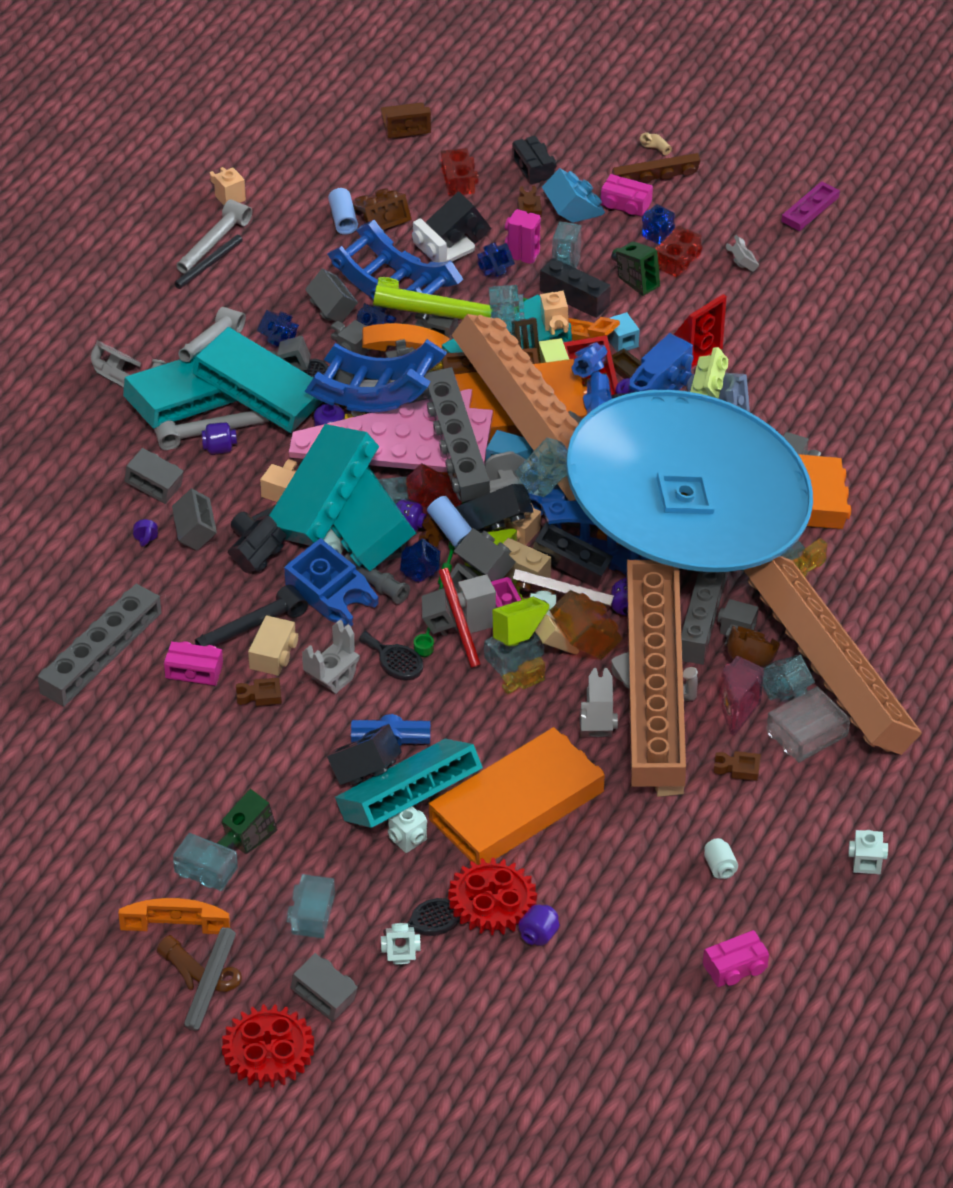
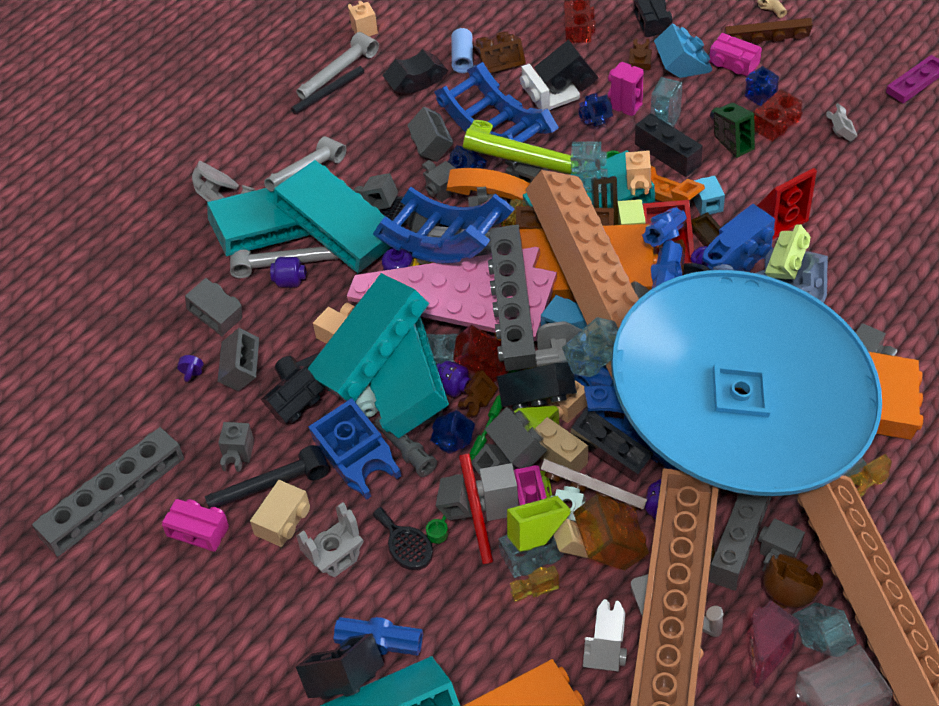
camera: 15 degrees right, 5 degrees up
(212, 592) = (235, 444): none -> dark grey brick
(263, 692) = (258, 569): reddish brown plate -> none
(277, 327) = (371, 161): clear blue brick -> none
(299, 237) = (415, 73): none -> black brick
(449, 520) = (490, 390): light blue pin -> none

